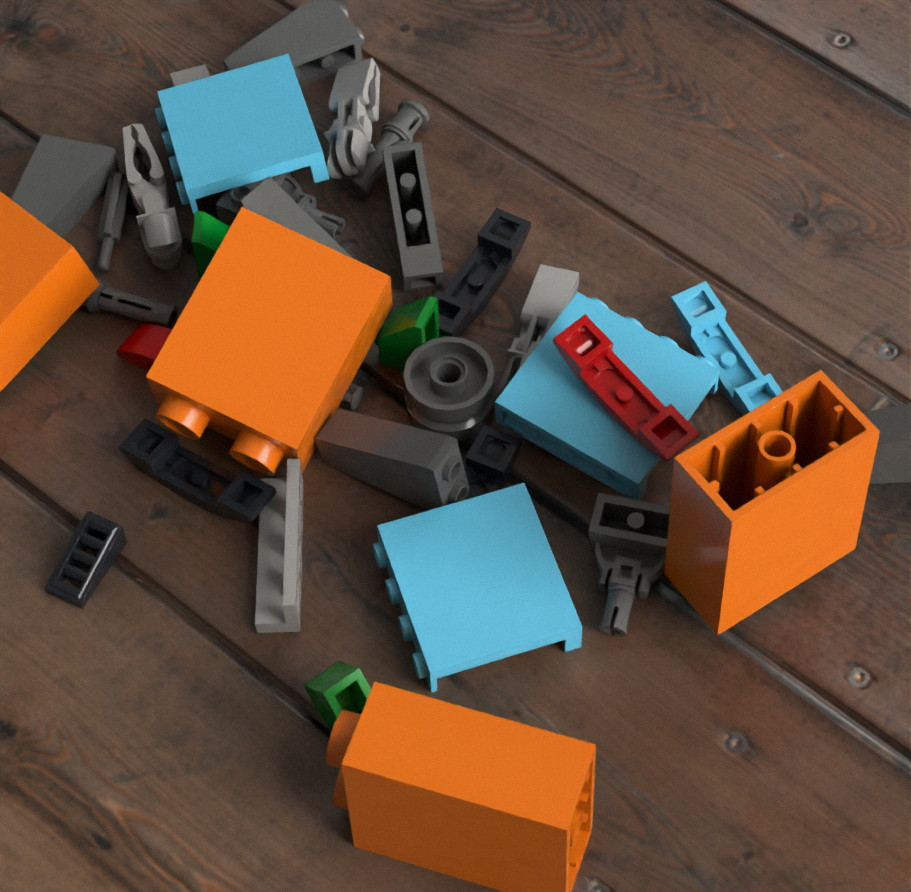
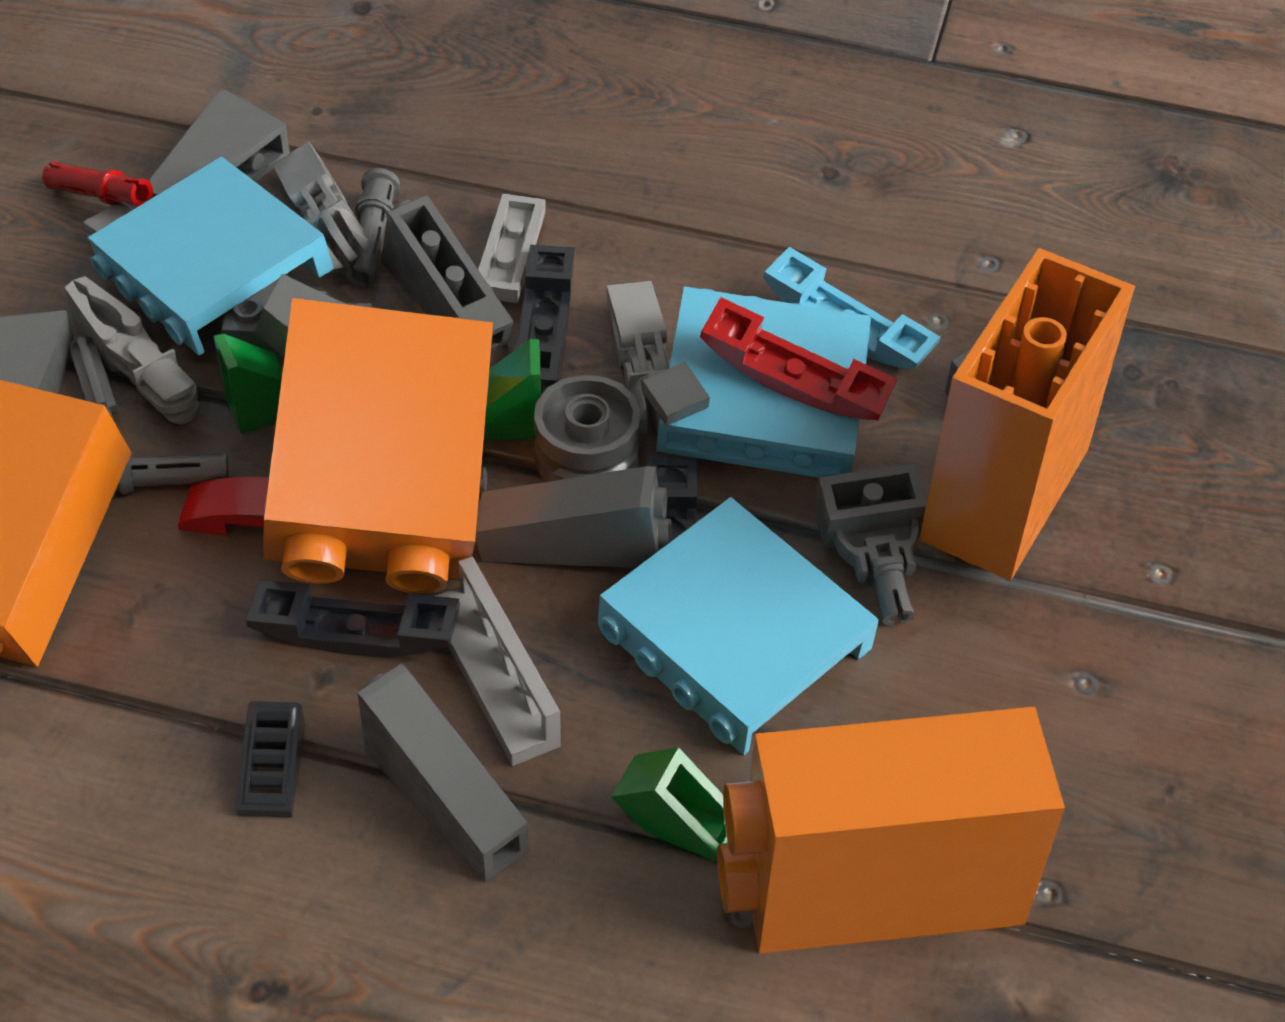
camera: 30 degrees left, 5 degrees down
(189, 618) = (440, 773): none -> dark grey slope
(197, 48) = (109, 186): none -> red pin
(496, 189) = (508, 245): none -> light grey plate
(517, 382) = (675, 393): none -> dark grey tile

